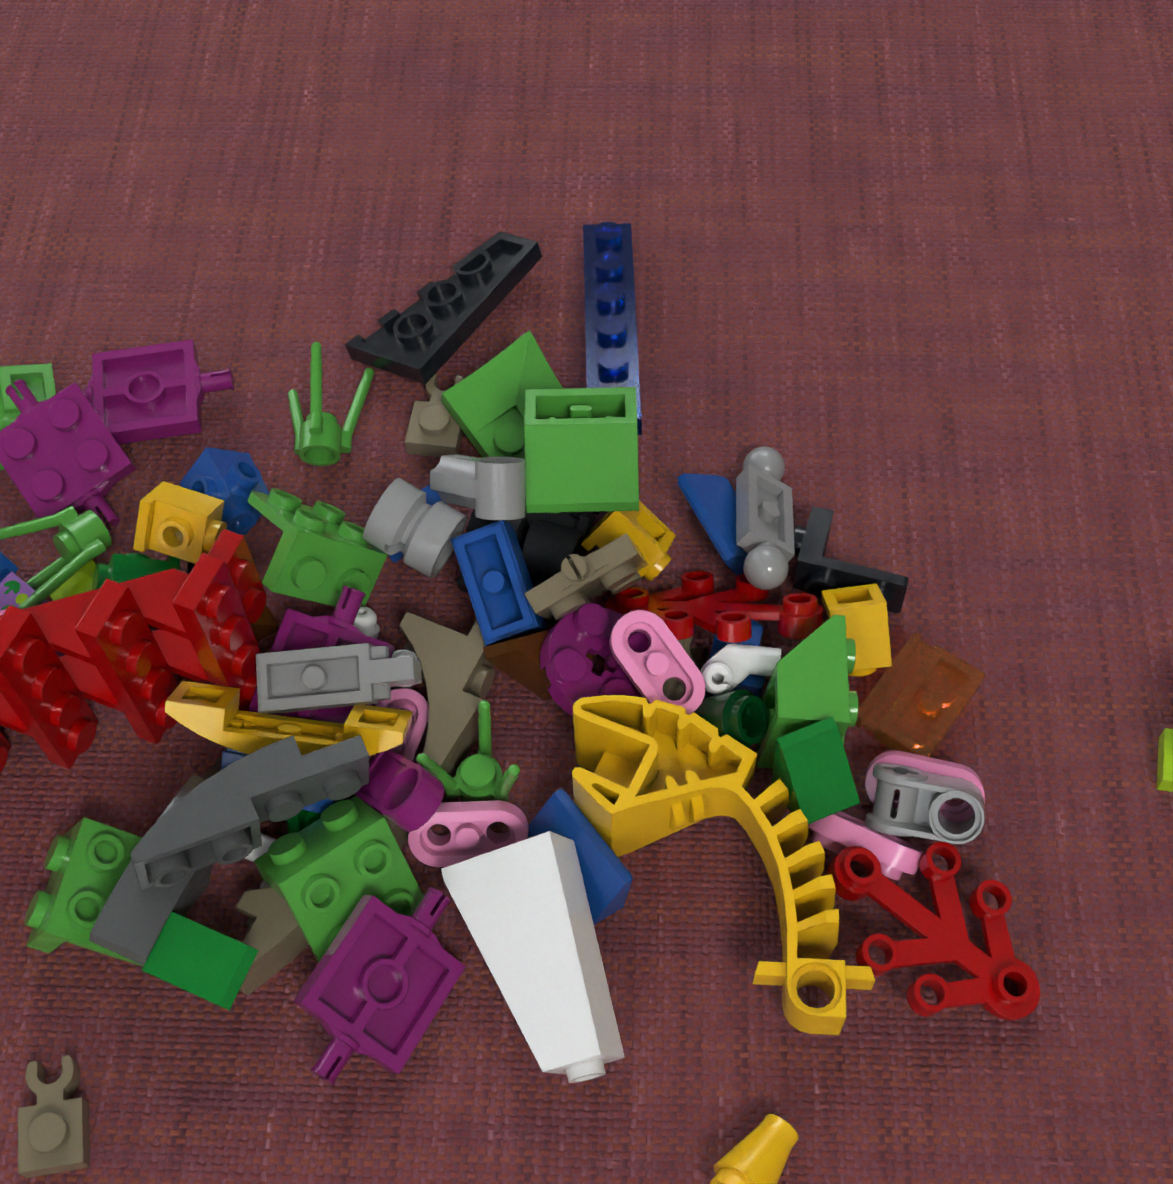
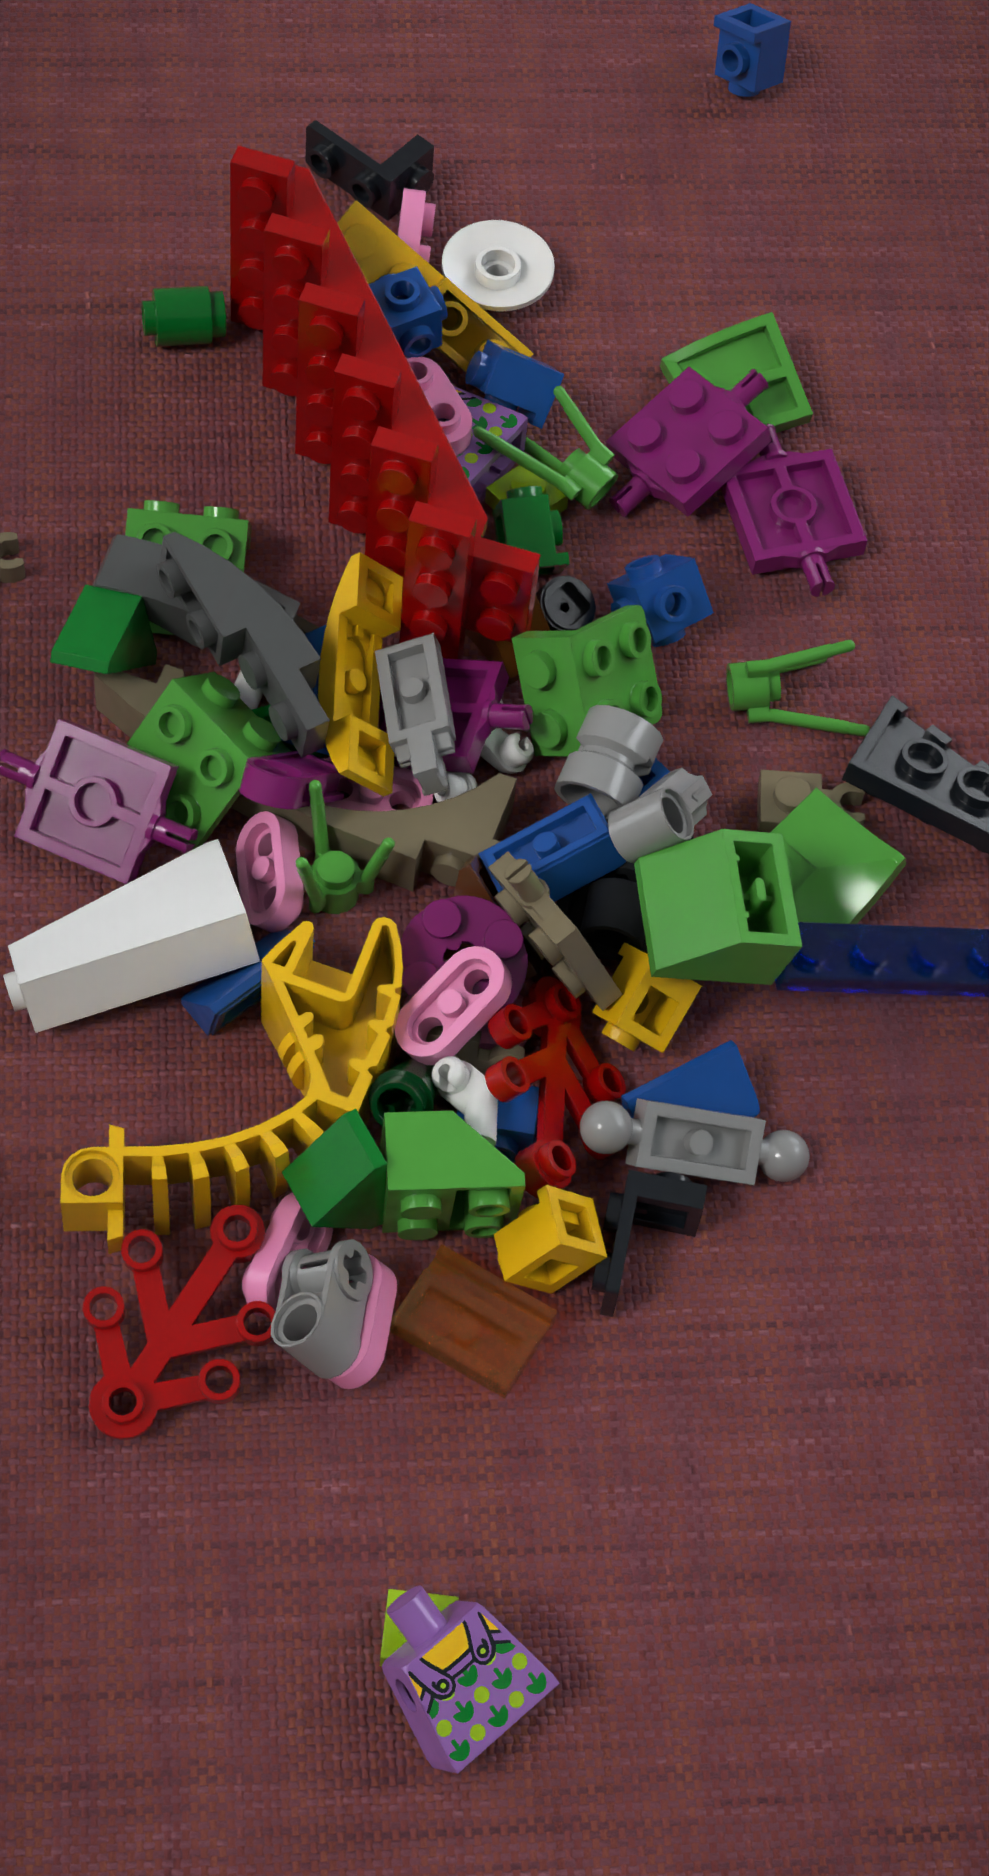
camera: 75 degrees right, 0 degrees up
(178, 522) = (597, 549): yellow brick -> none

